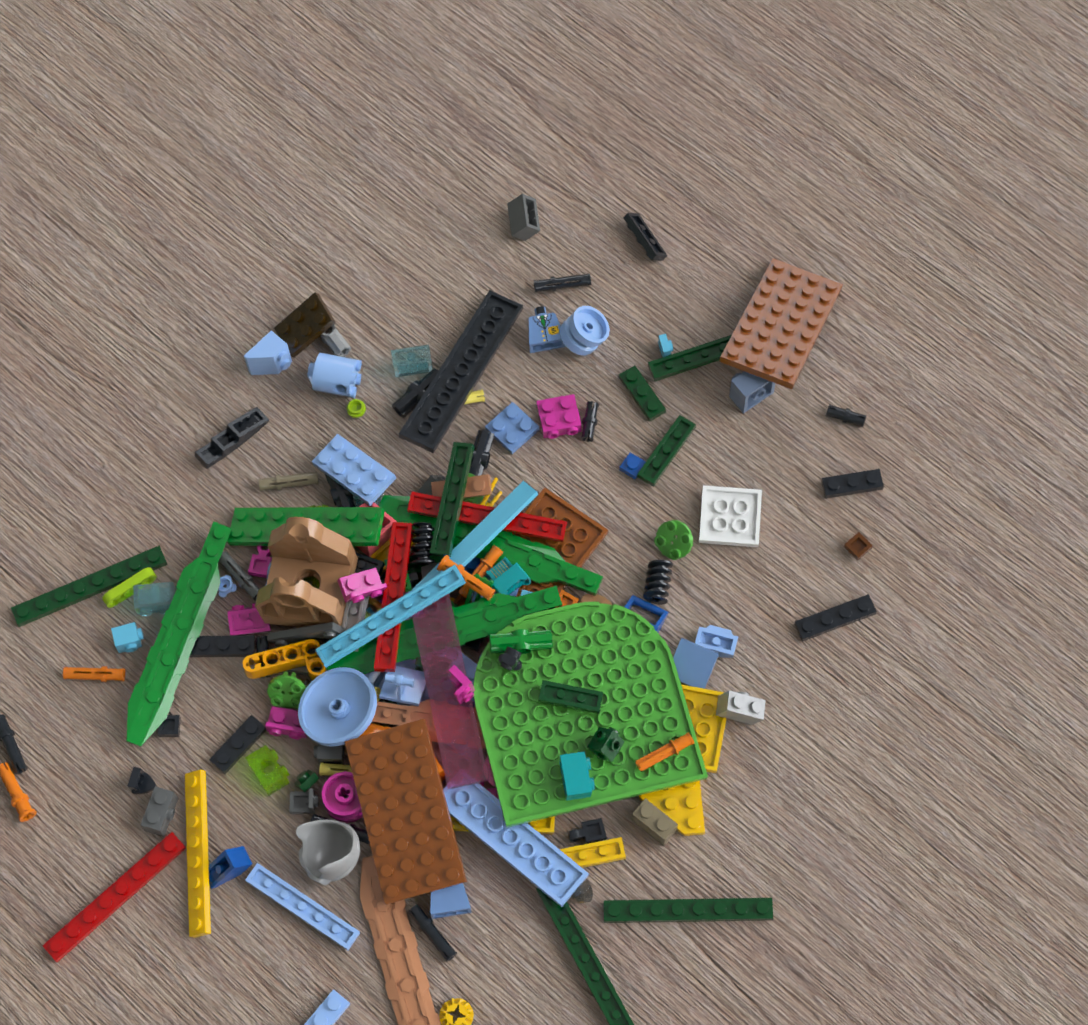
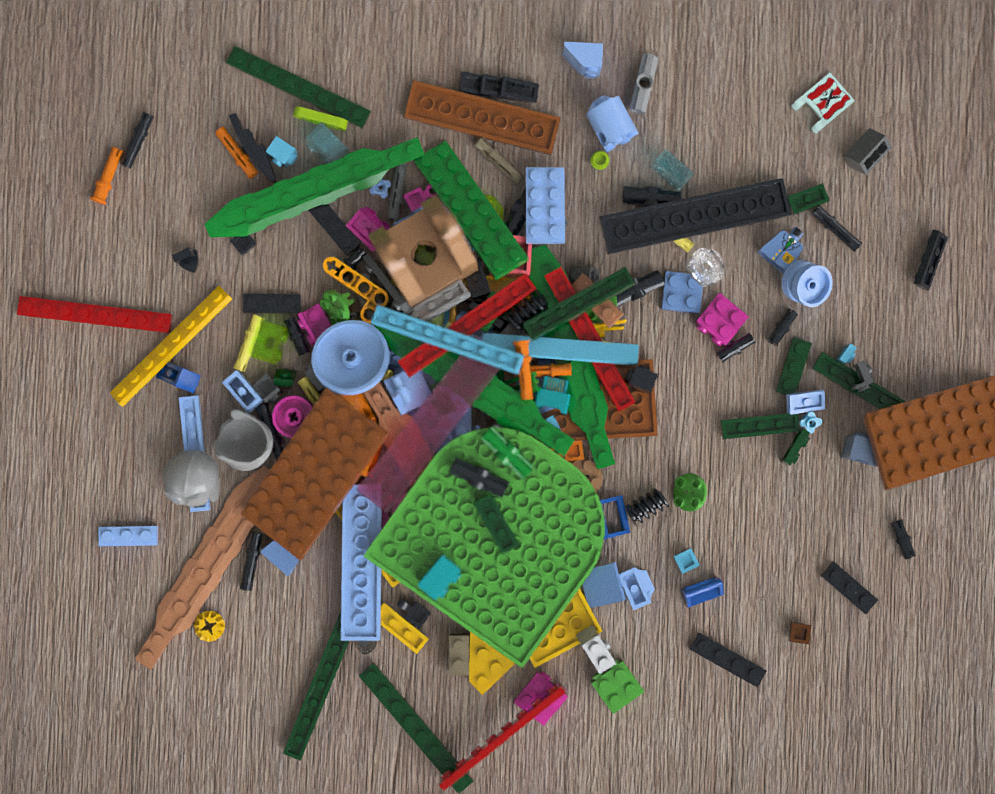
camera: 45 degrees right, 20 degrees up
(110, 657) = (257, 153): none -> black slope
(159, 811) = (176, 293): dark grey brick -> none
(243, 467) = (482, 117): none -> dark orange plate
(248, 779) = (248, 343): none -> light yellow pin
(282, 745) = (296, 336): none -> black pin
(285, 820) = (243, 391): none -> light blue brick
(305, 324) = (633, 62): dark brown plate -> none
(320, 918) = (191, 478): none -> light grey piece
(361, 585) = (453, 297): bracket -> none
(459, 218) = (826, 100): none -> flag
(462, 684) = (437, 438): dark pink bracket -> none
(510, 659) = (485, 458): black plate -> none
(514, 400) = (699, 273): none -> clear plate
(521, 679) = (479, 477): none -> black piece
(522, 285) = (808, 199): none -> dark green plate
(553, 501) = (641, 379): none -> black brick
(603, 376) = (782, 327): none -> black pin
(606, 743) = (481, 579): dark green brick -> none
(632, 465) = (726, 409): blue plate -> none
(664, 752) = (512, 624): orange axle -> none
(676, 402) = (805, 401): none -> light blue plate
(691, 343) = (864, 373): none -> dark grey bracket
(691, 415) = (810, 416): none -> medium azure plate
(709, 444) = (800, 440): none -> dark green plate
(727, 586) = (686, 560): none -> medium azure plate
(730, 516) = (745, 517): white plate -> none
(746, 786) = (533, 689): none -> dark pink plate
(750, 845) = (495, 741): none -> red plate
(763, 591) = (702, 591): none -> blue tile
(785, 719) = (616, 686): none -> bright green plate

